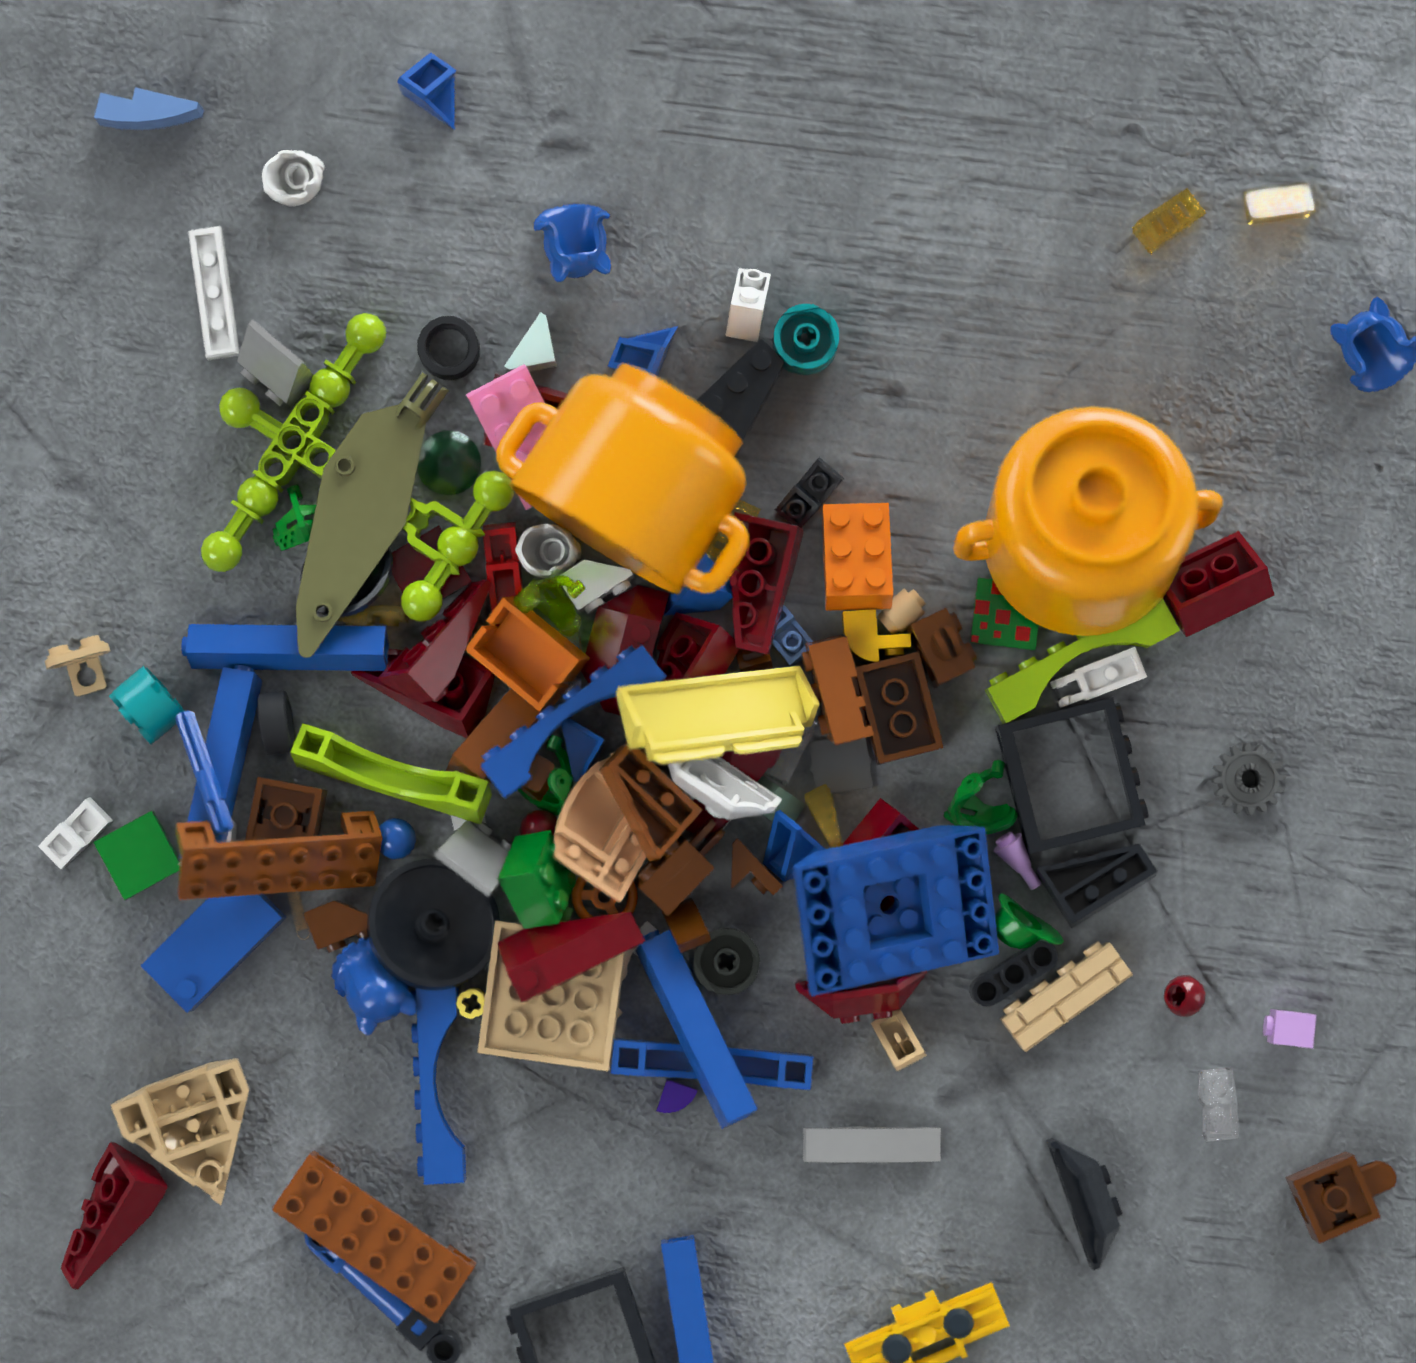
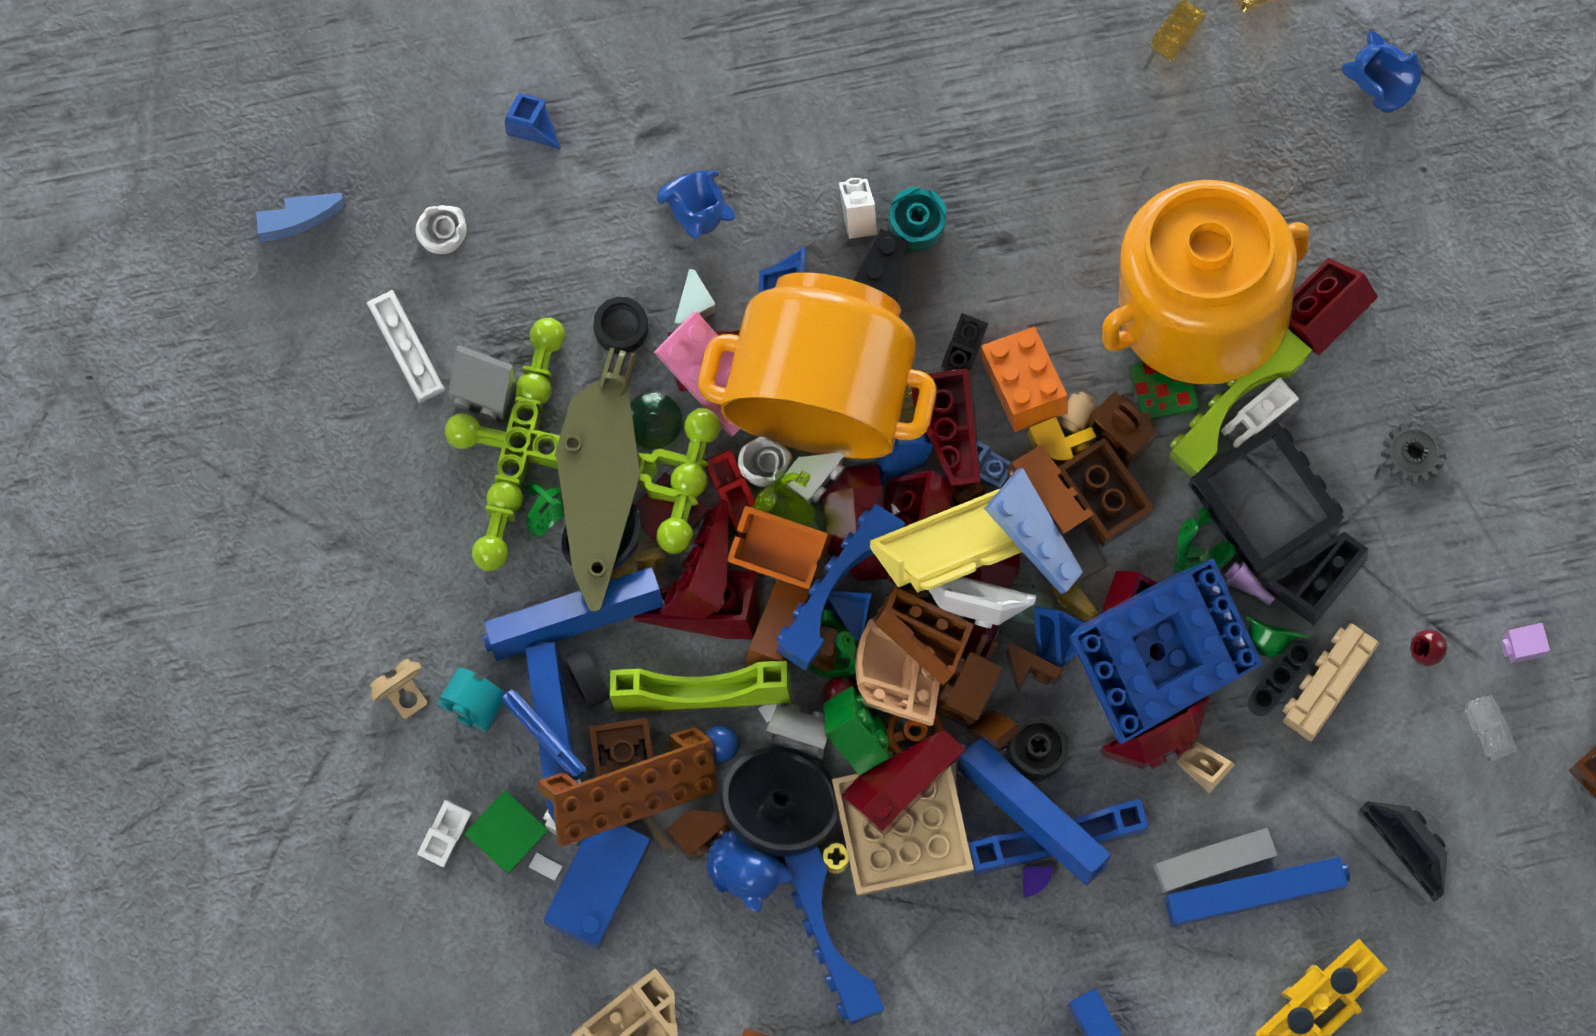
camera: 25 degrees left, 10 degrees down
(169, 903) = (545, 866): none -> white sticker
(801, 726) = (1032, 529): none -> medium blue wing
(904, 1193) = (1257, 891): none -> blue brick

